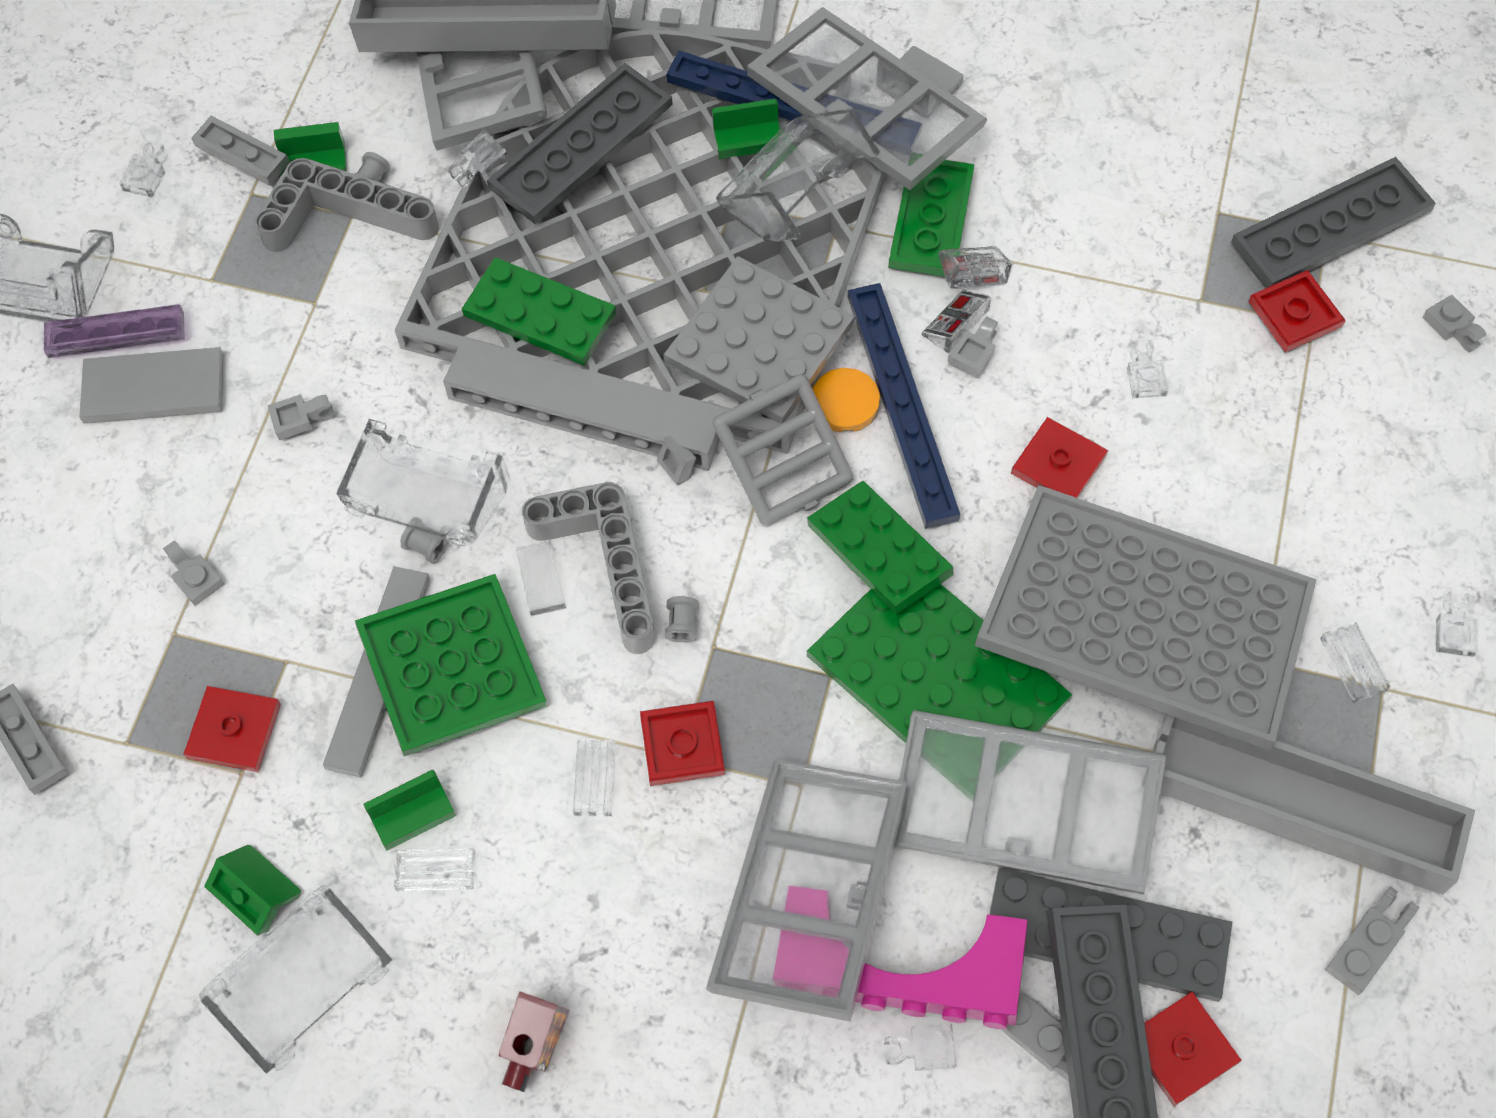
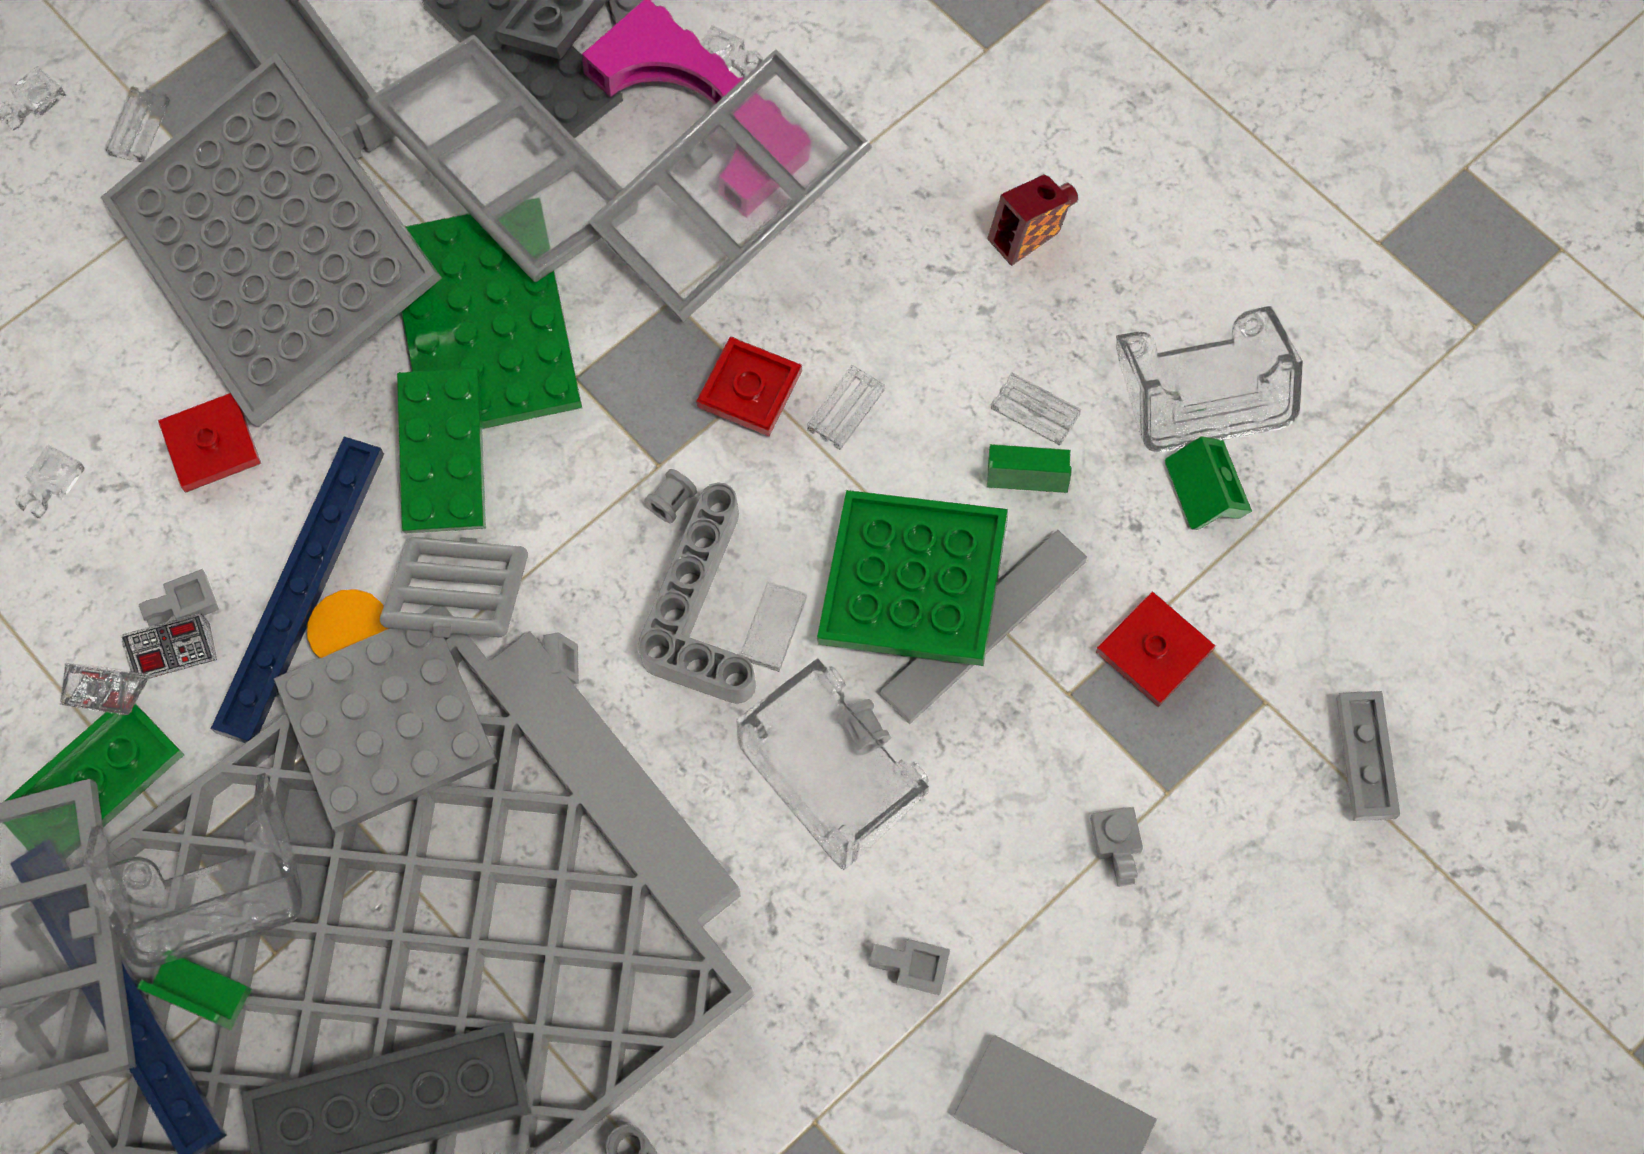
camera: 145 degrees left, 5 degrees up
(539, 311) = (584, 904): green plate -> none

